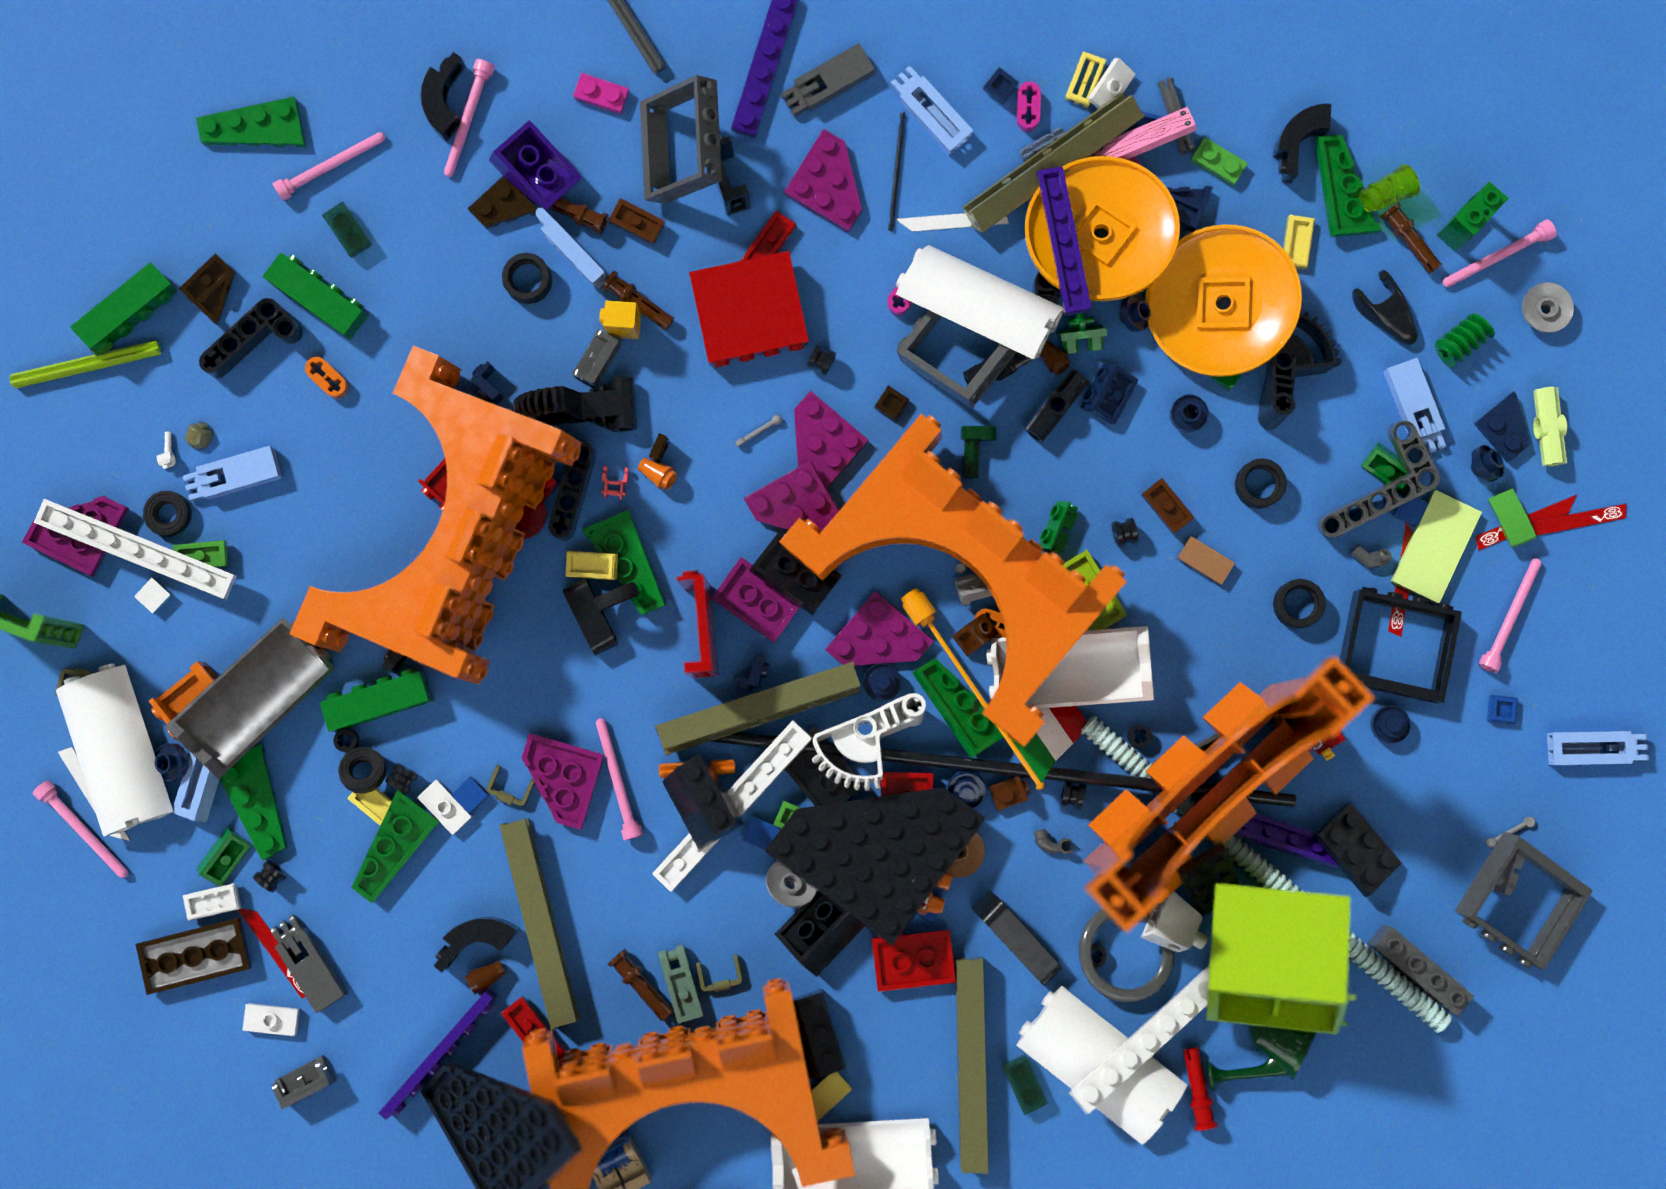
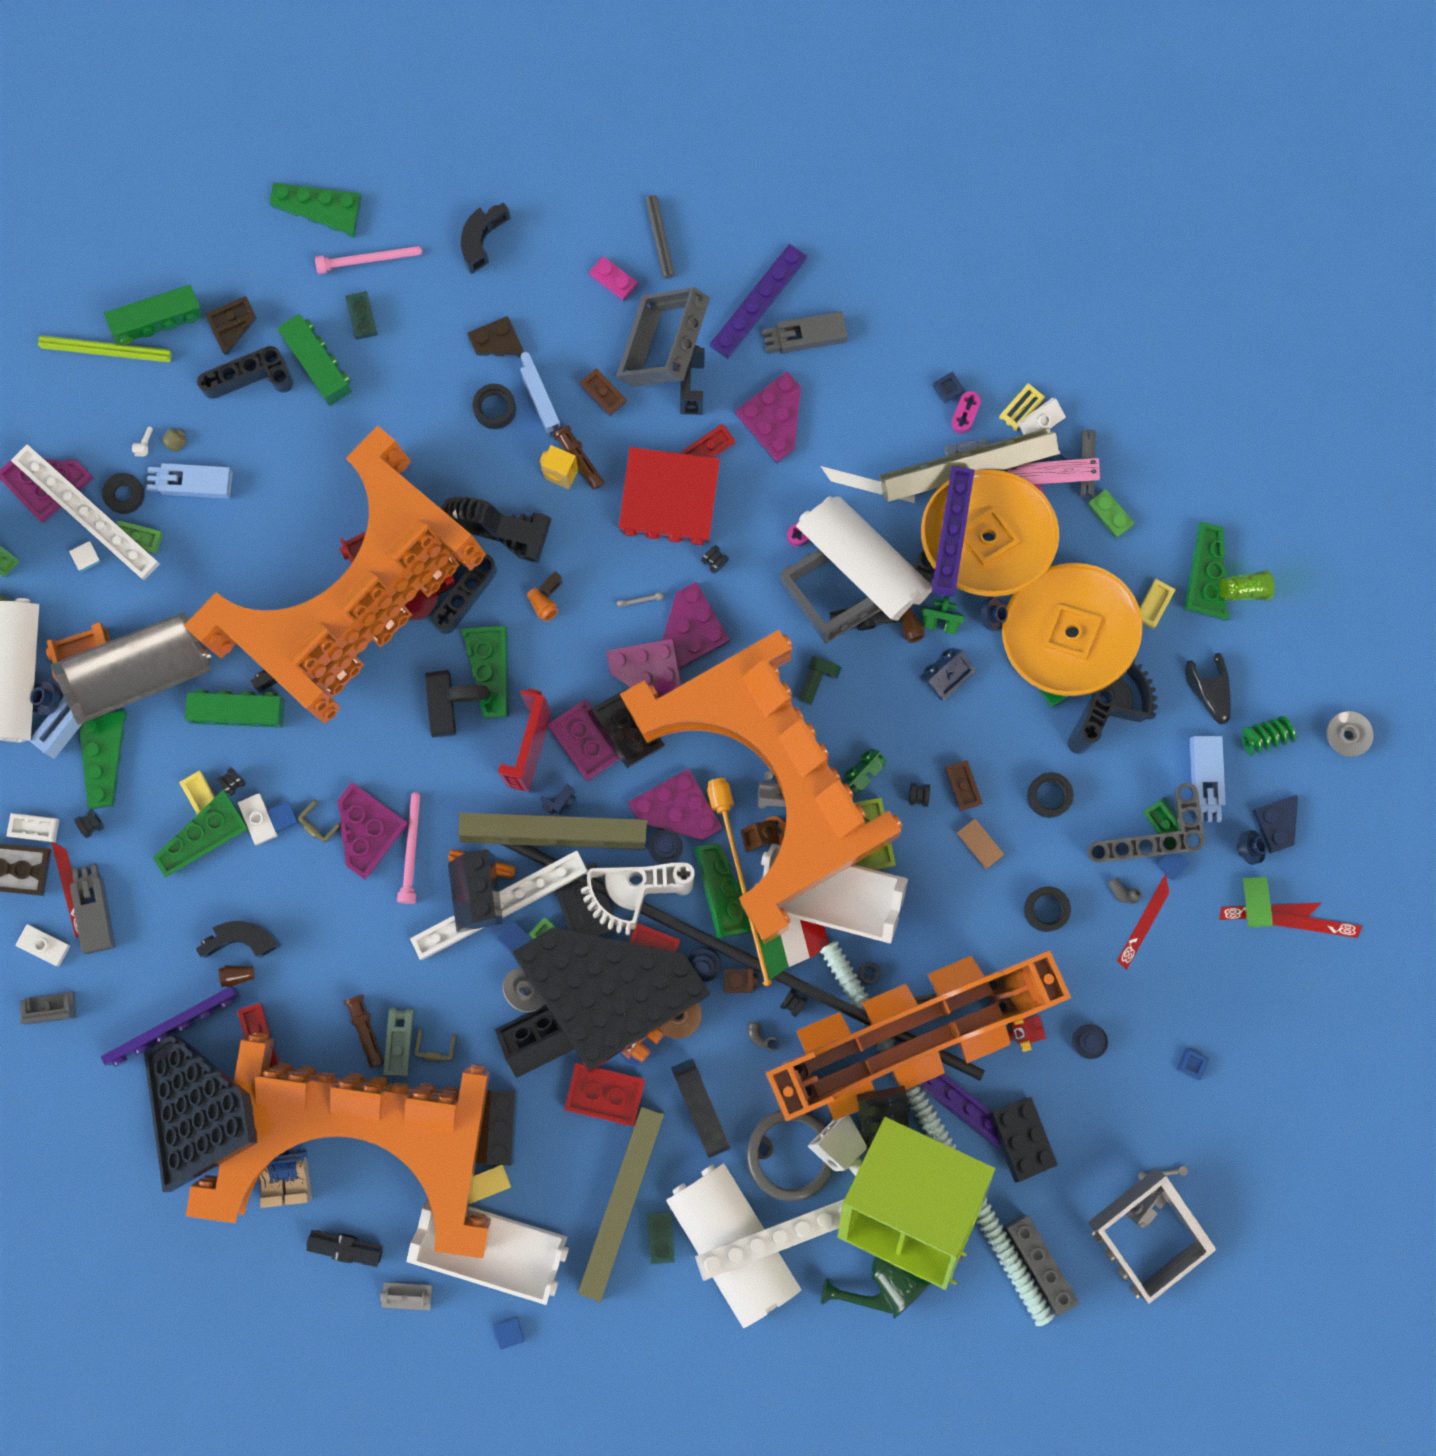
camera: 15 degrees right, 5 degrees down
(223, 857) = (57, 794): green slope -> none
(331, 373) = (293, 431): orange beam -> none
(347, 732) = (204, 737): black bush -> none
(358, 755) = (194, 751): black tyre -> none
(483, 71) = (522, 227): bright pink piece -> none
(485, 390) = (424, 473): dark blue bracket -> none
(535, 166) = (535, 317): dark purple slope -> none
(539, 923) = (299, 945): olive tile -> none
(582, 214) = (559, 370): reddish brown pin -> none
(591, 565) = (457, 661): light yellow tile -> none
(597, 358) = (527, 492): dark grey hinge -> none
(621, 493) = (511, 601): coral piece -> none
(891, 403) = (760, 617): dark brown tile -> none
(896, 171) = (835, 427): black piece -> none
(939, 119) = (886, 397): light blue hinge -> none
(1066, 393) = (888, 675): black piece -> none
(1189, 413) = (1009, 714): dark blue plate -> none
(1190, 205) = (1072, 540): dark blue wing -> none
(1200, 1101) = (809, 1310): red pin -> none
(1306, 124) = (1193, 508): black arch -> none
(1404, 228) = (1249, 624): reddish brown pin -> none
(1419, 606) = (1148, 947): black window -> none
(1436, 547) = (1183, 903): yellowish green tile -> none
(1472, 216) = (1310, 633): green window -> none
(1492, 659) = (1198, 1017): bright pink piece -> none
(1544, 232) = (1368, 669): bright pink piece -> none
(1550, 426) = (1317, 835): yellowish green piece -> none
(1584, 748) = (1254, 1124): light blue hinge -> none

